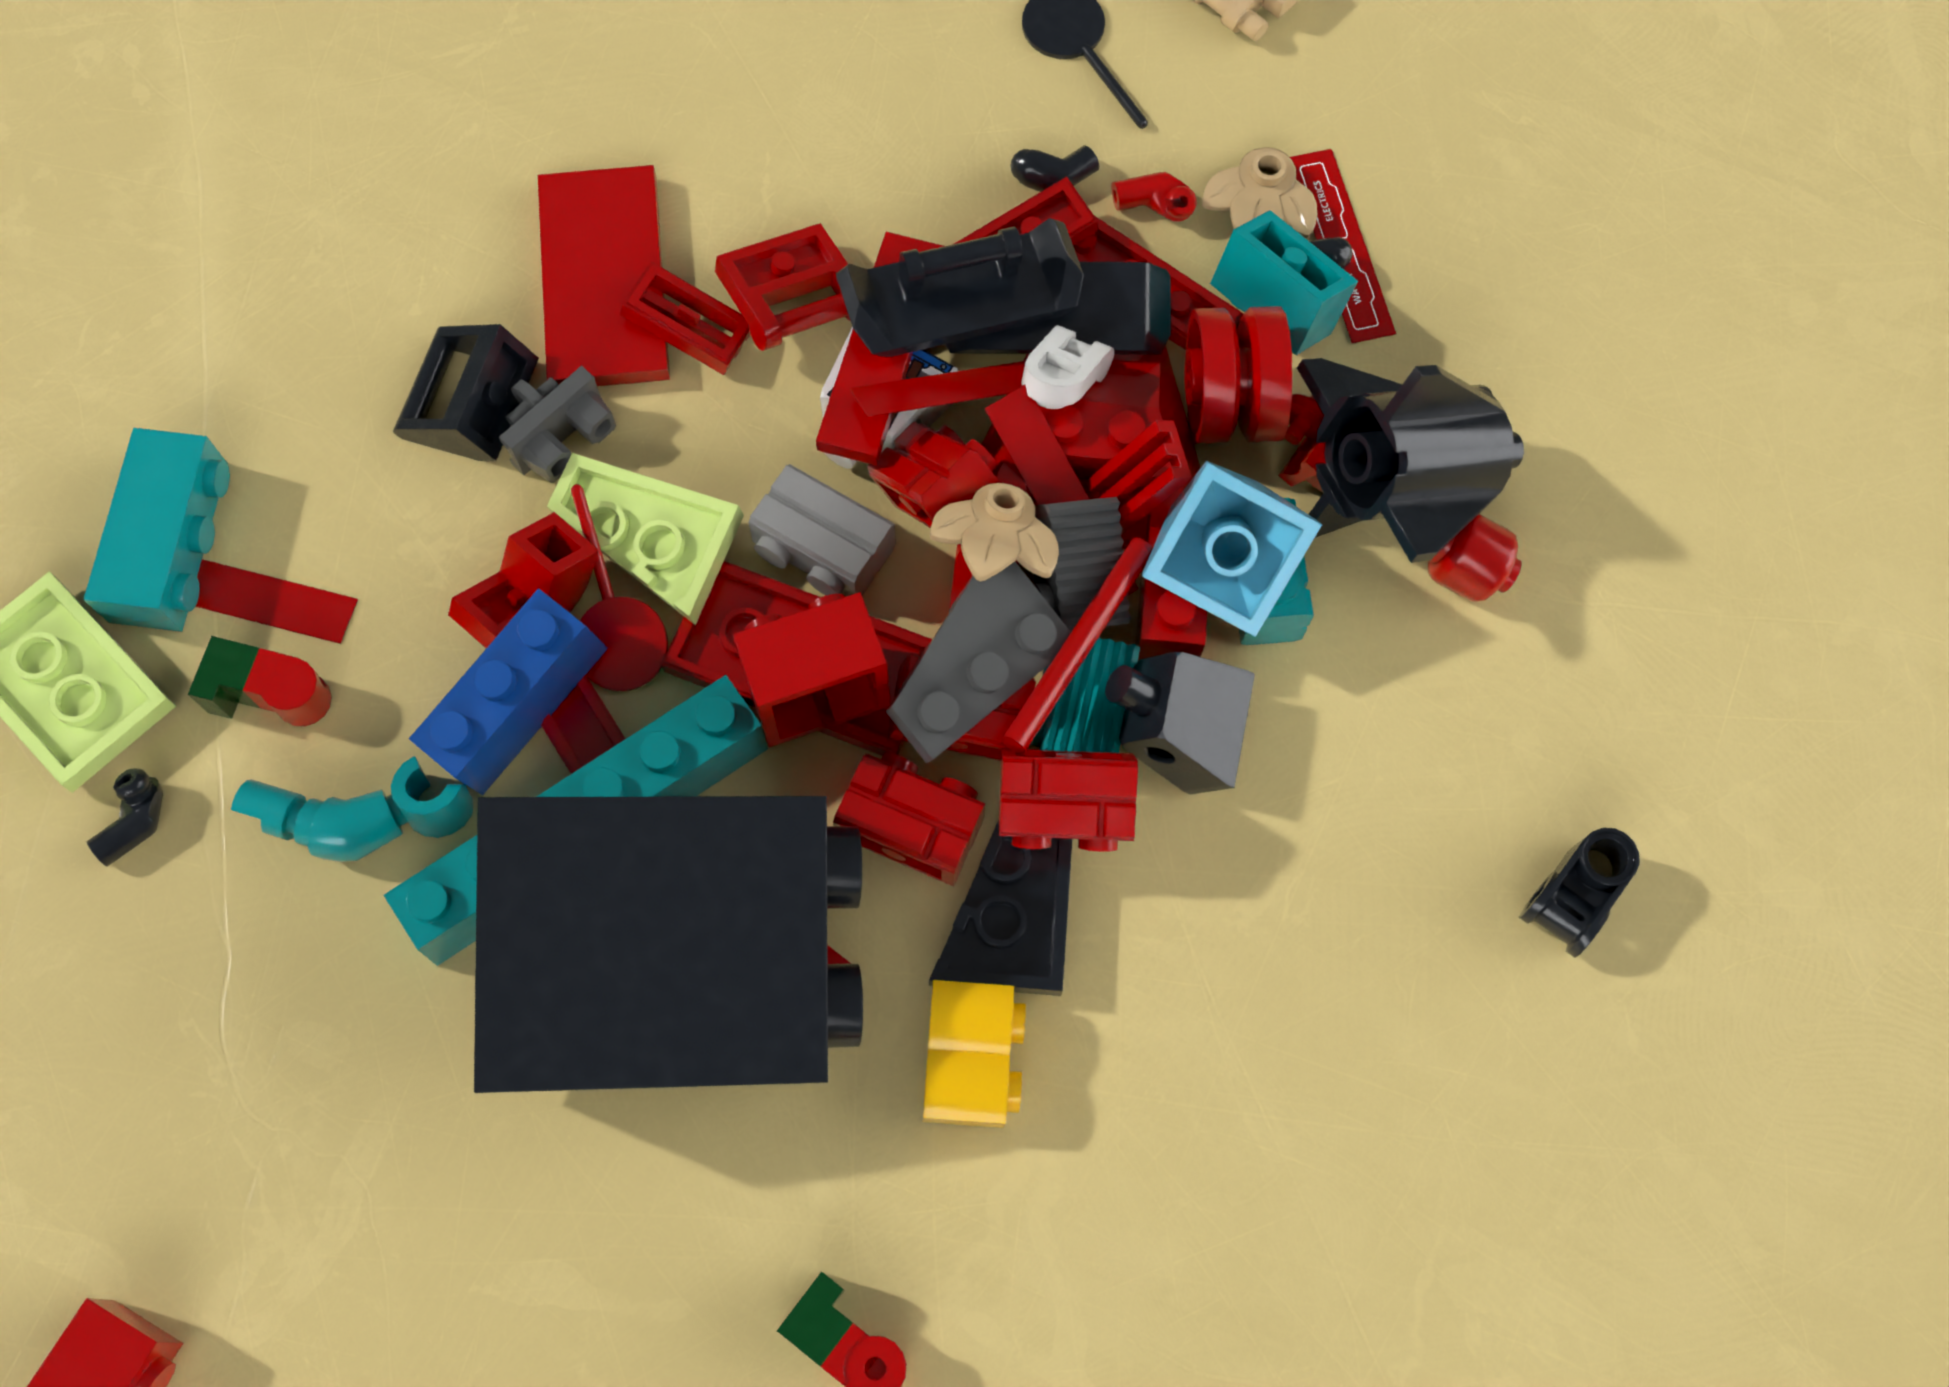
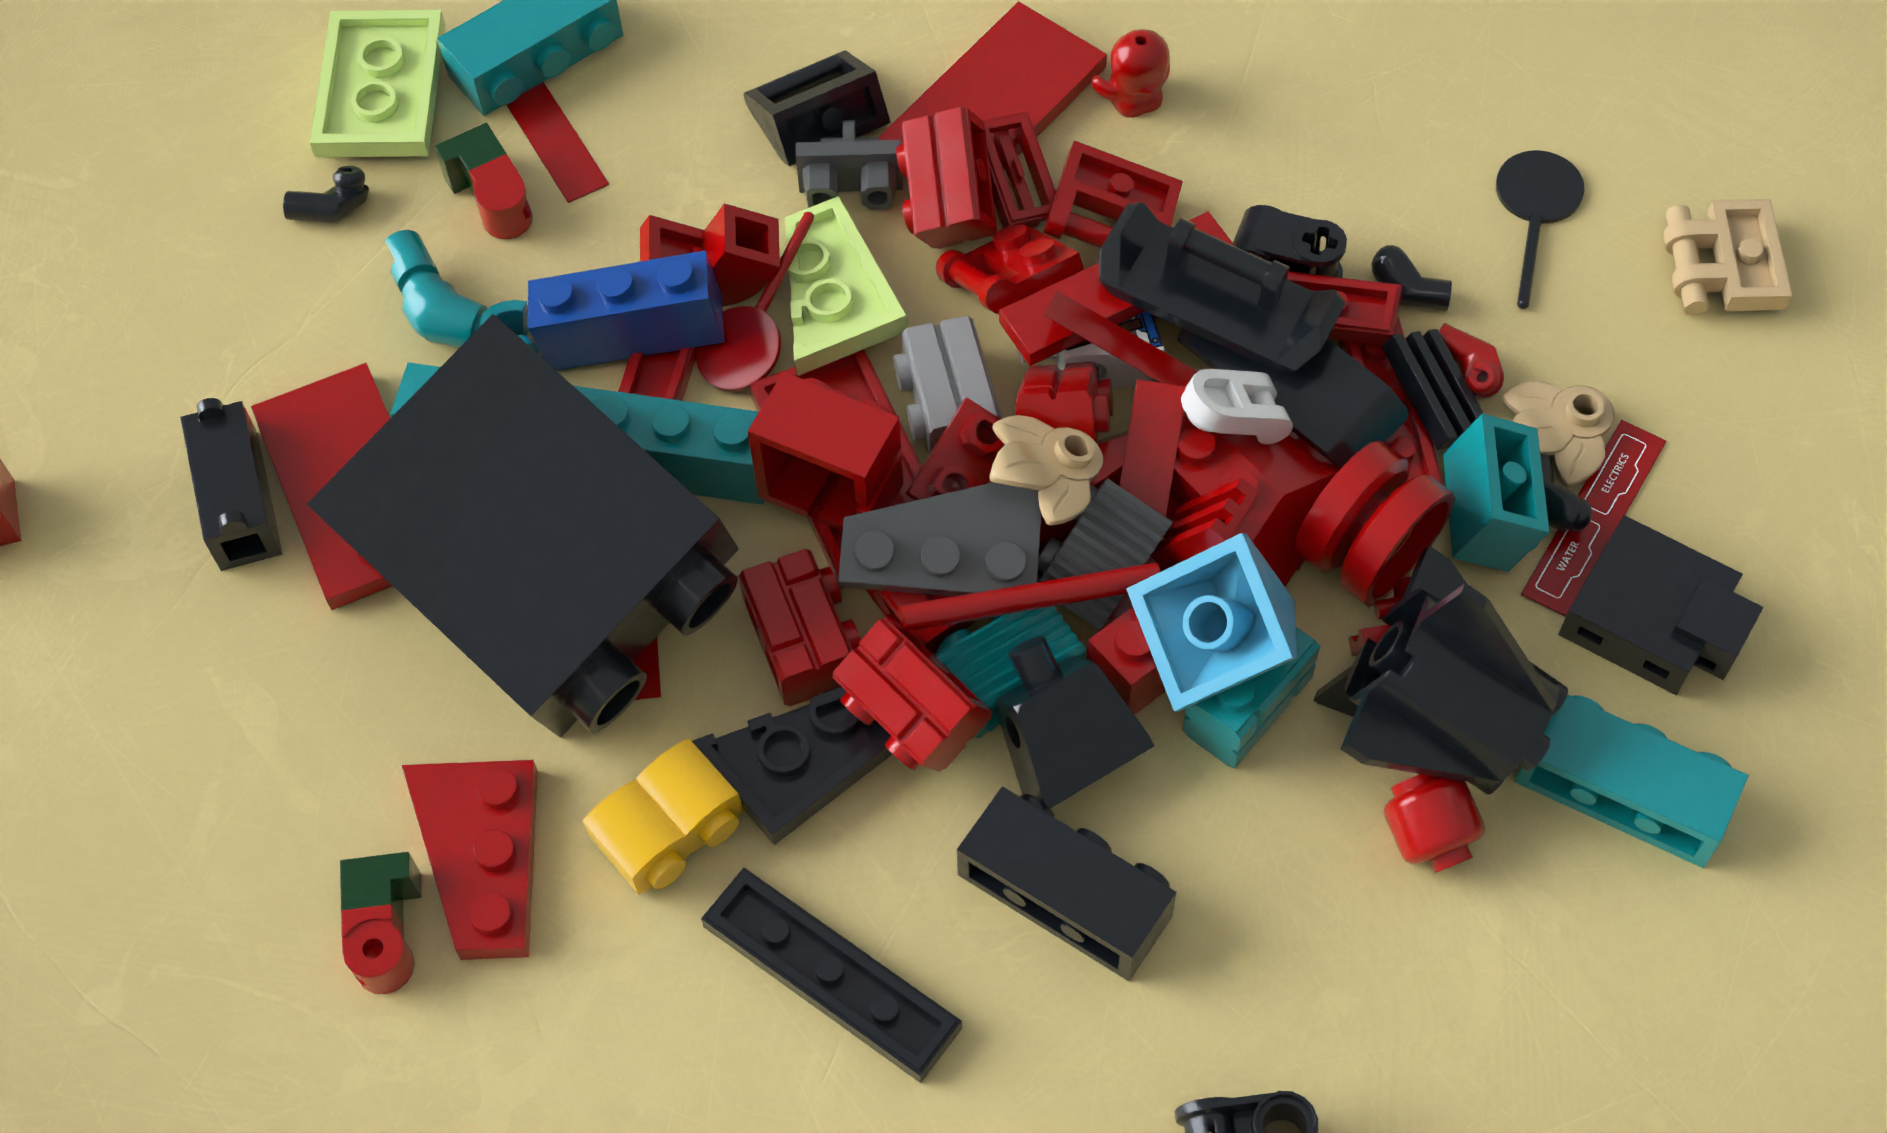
camera: 50 degrees right, 10 degrees down
(327, 1128) = (230, 484): none -> black brick
(396, 1031) = (309, 441): none -> red tile
(649, 366) = (947, 178): none -> brick
(697, 162) = (1138, 71): none -> red animal
(768, 384) = (1018, 262): none -> red plate
(852, 1210) = (480, 849): none -> red wing
(903, 583) = (961, 454): none -> red hips
(946, 209) = (1292, 240): none -> black piece
(1160, 237) = (1433, 385): none -> black tile
(1198, 1048) = (832, 974): none -> black tile
(1292, 826) = (1066, 881): none -> black brick
(1456, 275) = (1660, 608): none -> black piece
(1579, 405) = (1636, 780): none -> teal brick

